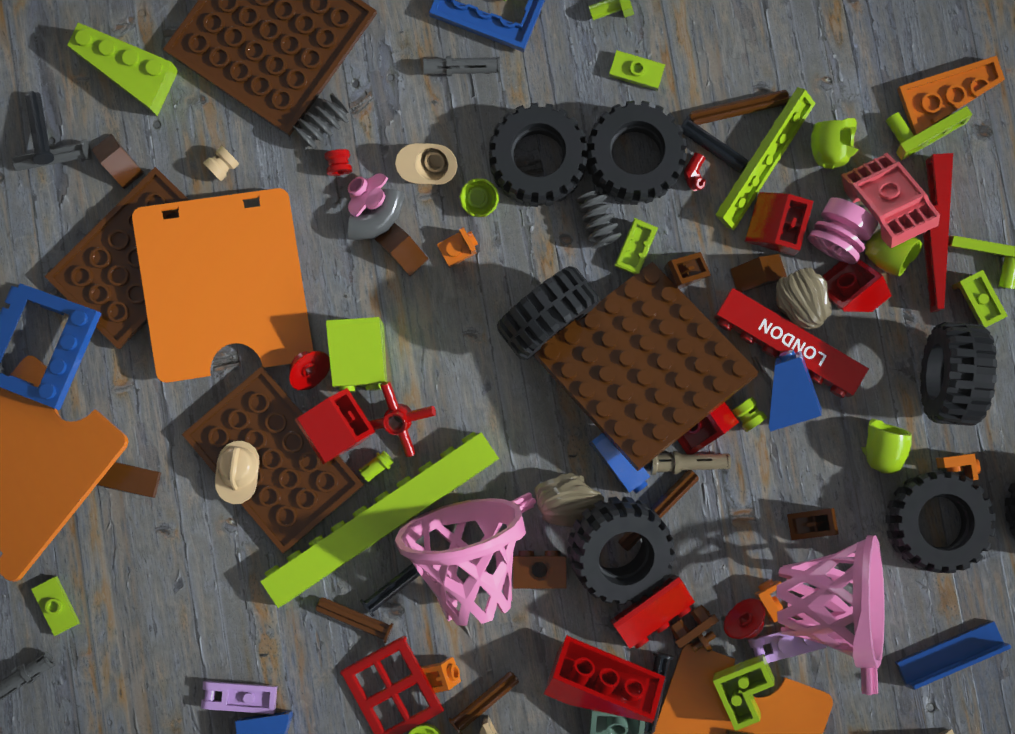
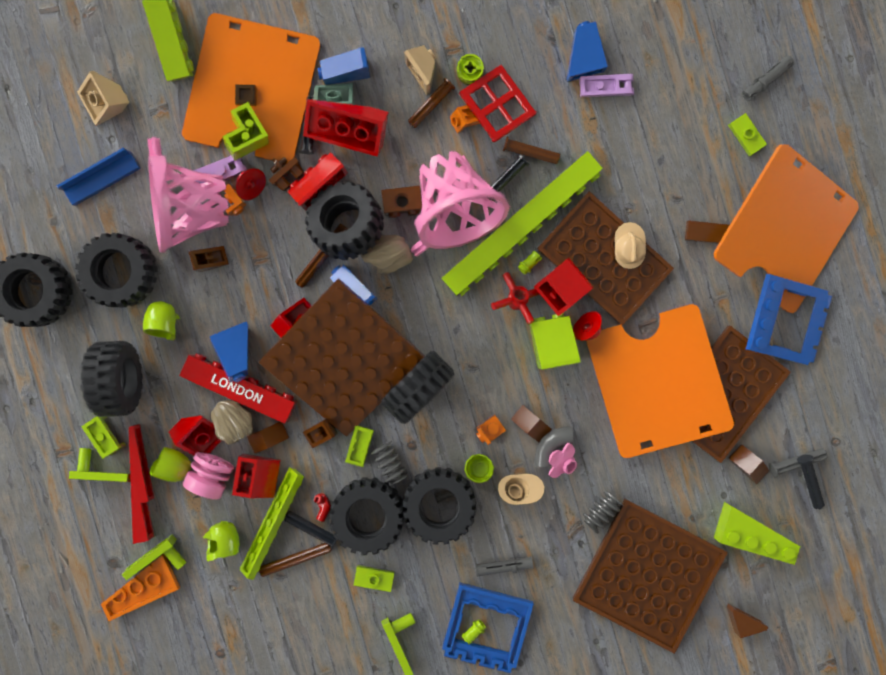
camera: 175 degrees right, 5 degrees up
(221, 163) = (672, 471): tan wheel -> none
(338, 162) = (586, 482): red wheel -> none
(676, 462) = (311, 291): dark tan pin -> none
(749, 414) = (263, 332): lime wheel -> none
(892, 199) = (173, 503): coral plate -> none
(955, 463) = (107, 315): orange bracket -> none

